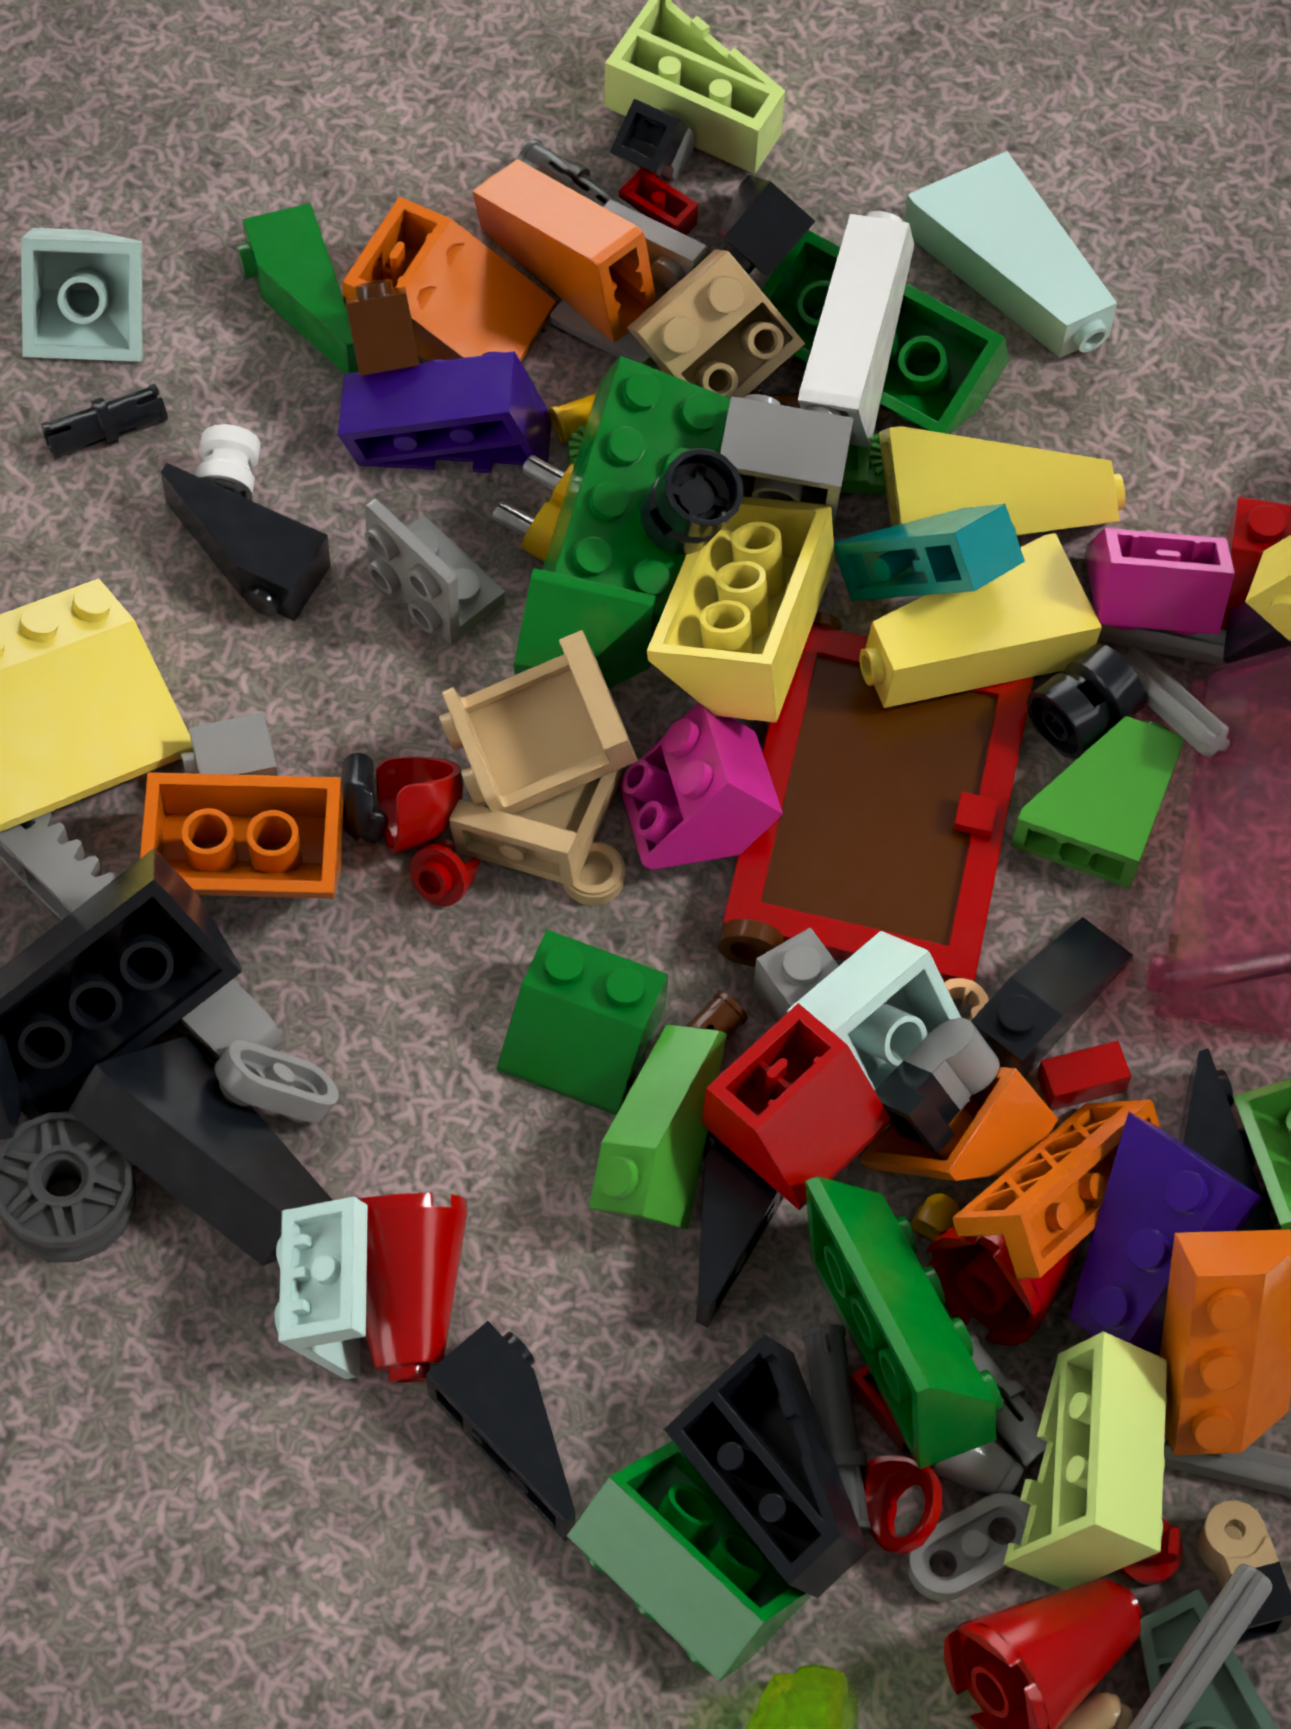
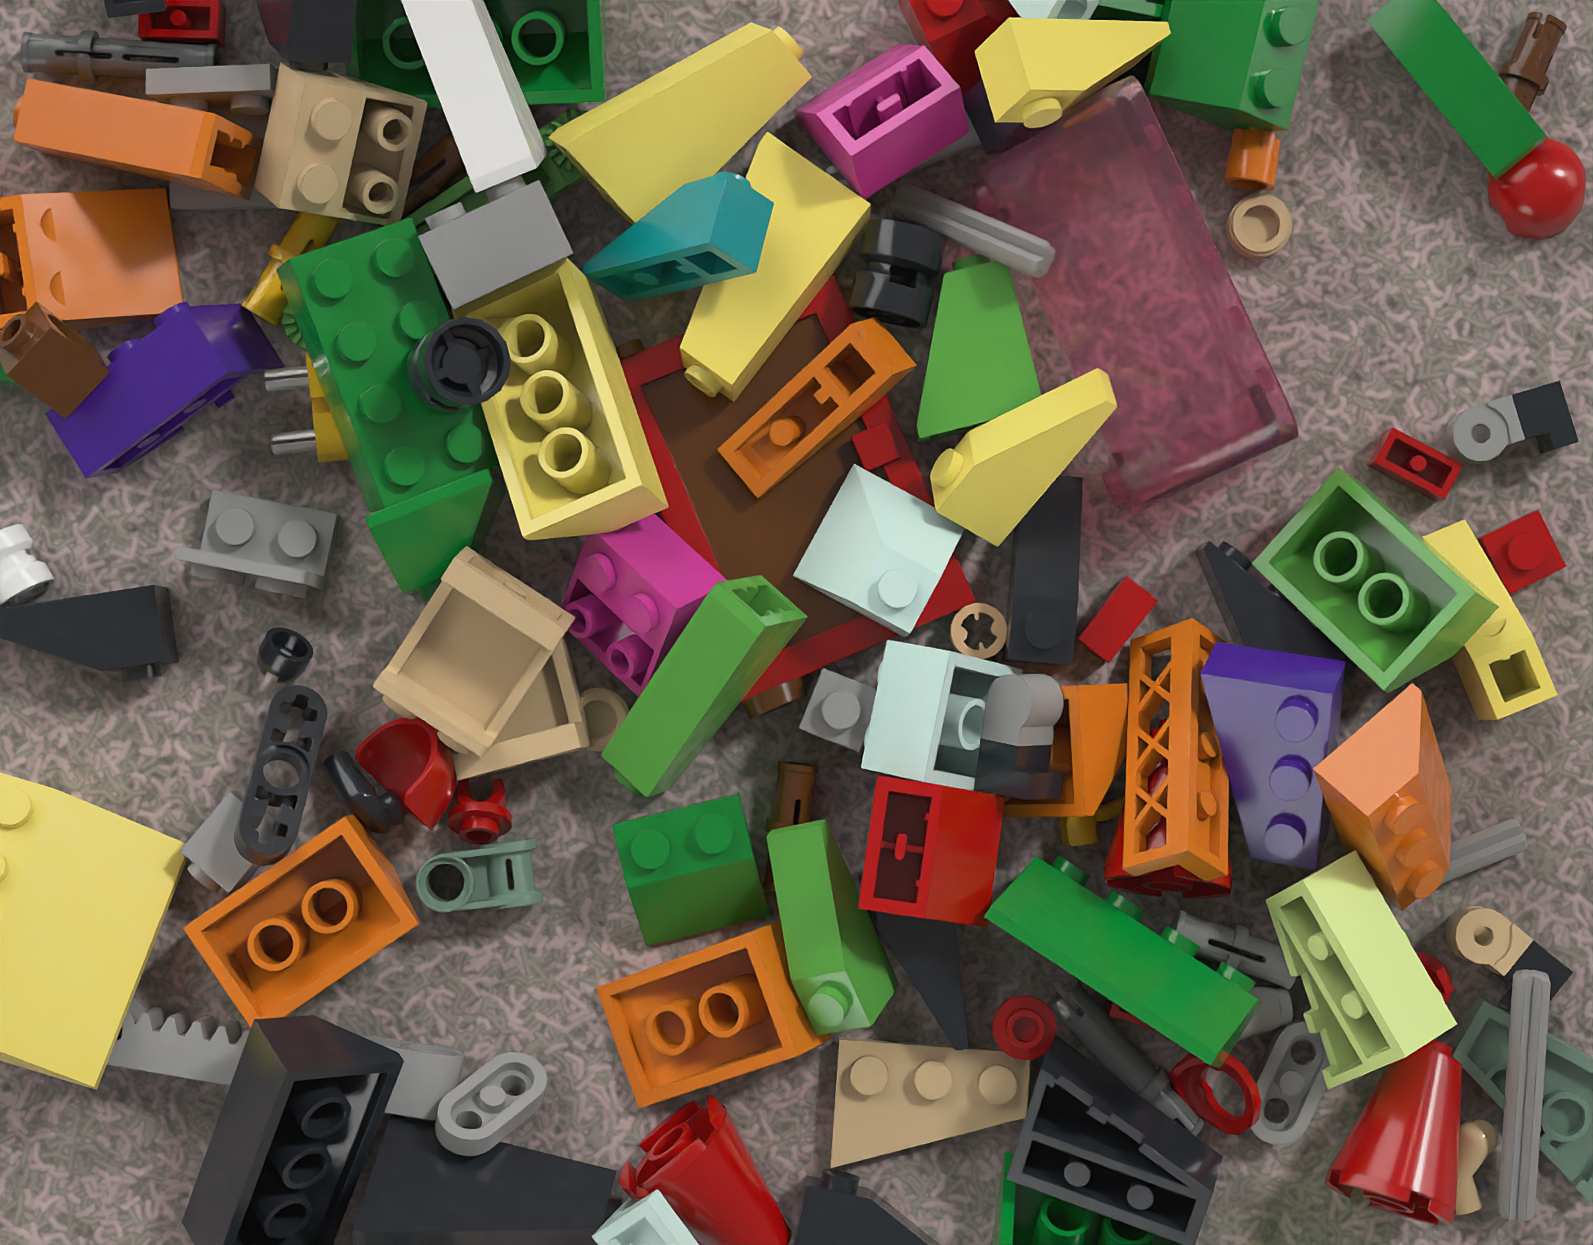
camera: 30 degrees left, 25 degrees up
(324, 710) = (287, 819): none -> black beam
(381, 662) = (284, 654): none -> black hinge
(416, 922) = (485, 877): none -> sand green piece
(510, 1144) = (708, 1016): none -> orange slope
(630, 1332) = (919, 1094): none -> tan wing
(703, 869) = (701, 682): none -> bright green slope
(772, 1319) = (1024, 1027): none -> red plate
(923, 884) = (879, 551): none -> light aqua slope
(954, 741) = (817, 404): none -> orange slope
(1080, 878) = (1017, 456): none -> light yellow slope

